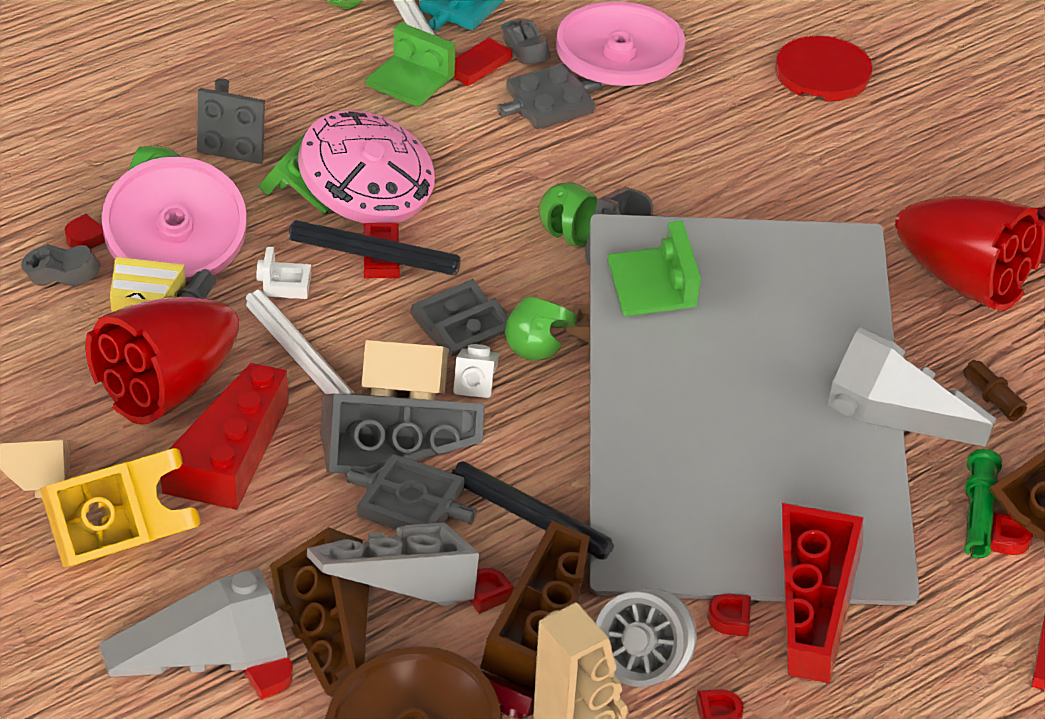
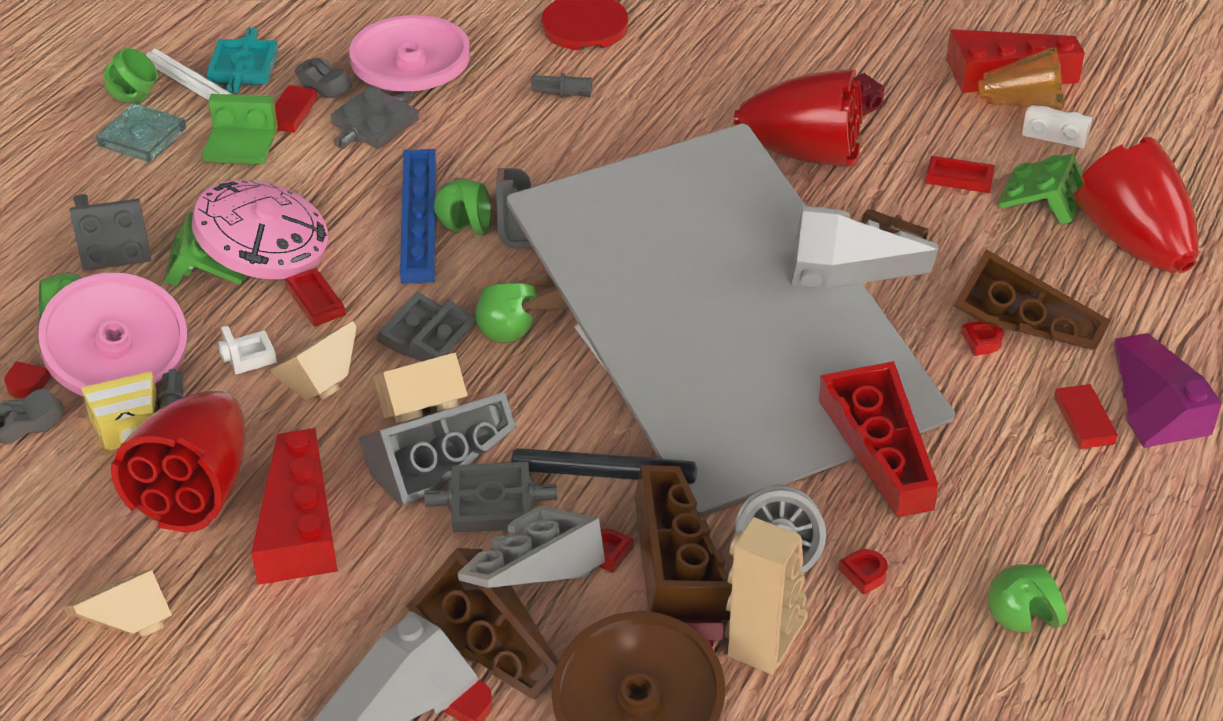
camera: 25 degrees left, 0 degrees up
(128, 506) = (249, 607): yellow brick -> none
(296, 344) = (297, 406): white axle -> none
(328, 39) = (141, 132): none -> clear light blue plate
(337, 314) = (319, 365): none -> tan slope
(375, 247) = (312, 295): black axle -> none
(475, 371) = (475, 367): white bracket -> none
(521, 210) = (418, 217): none -> blue plate
(657, 277) = (600, 226): bright green bracket -> none
(730, 614) = (821, 486): red tile -> none
(754, 126) = (562, 85): none -> dark grey axle
(983, 469) = (942, 310): green pin -> none

